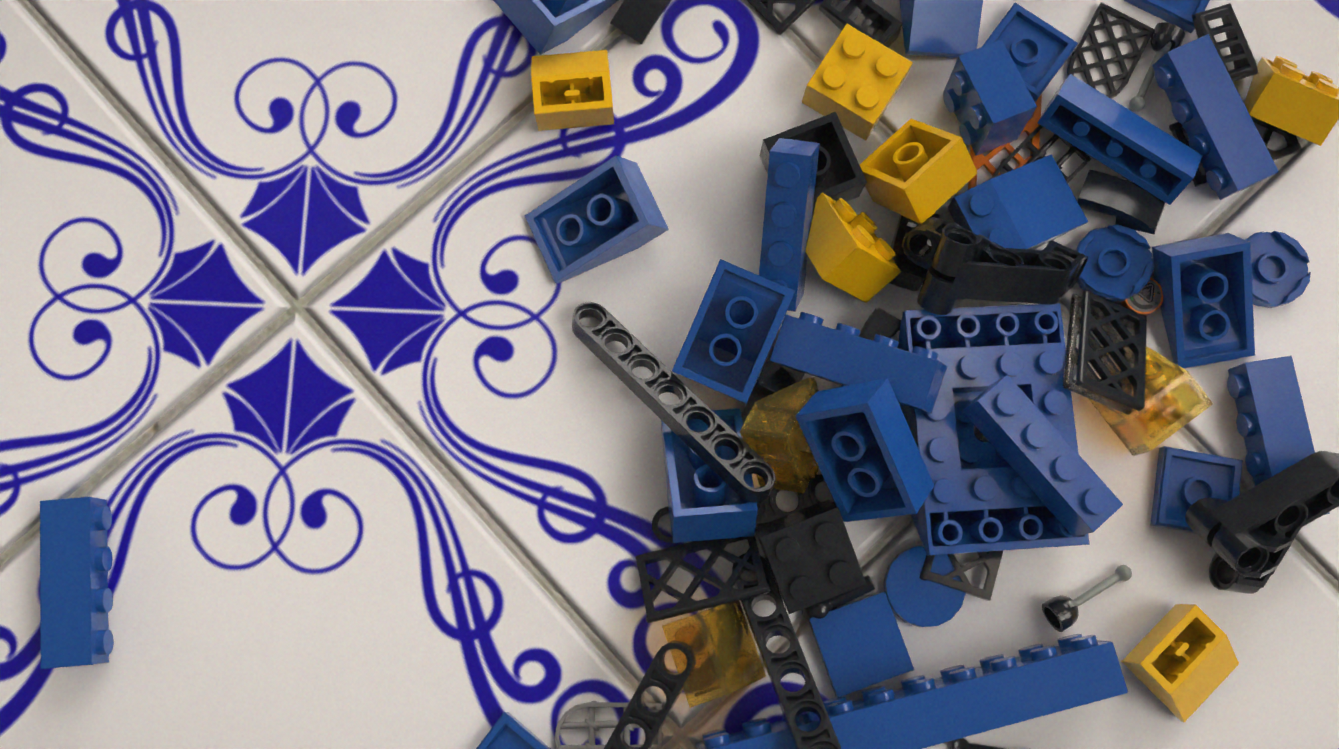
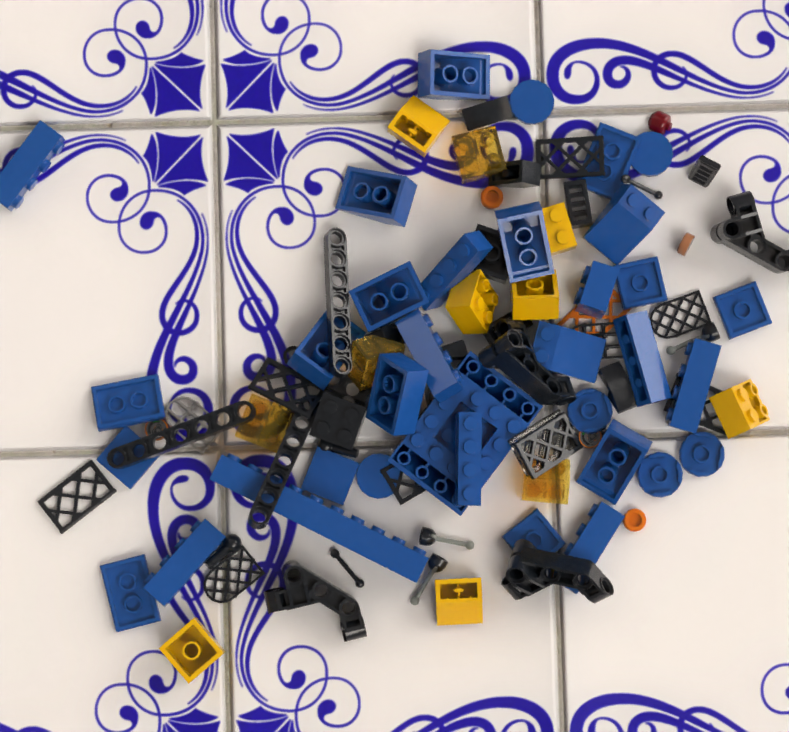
camera: 45 degrees right, 5 degrees up
(681, 59) = (478, 154): none -> clear yellow slope
(744, 102) = (491, 197): none -> orange tile
(749, 47) = (517, 175): none -> black slope
(848, 106) = (524, 242): none -> blue slope
(1112, 632) = (435, 564): none -> hinge
(1240, 51) = (737, 369): black slope -> none
(1295, 199) = (701, 454): none -> blue tile
(1301, 349) = (634, 520): none -> orange tile

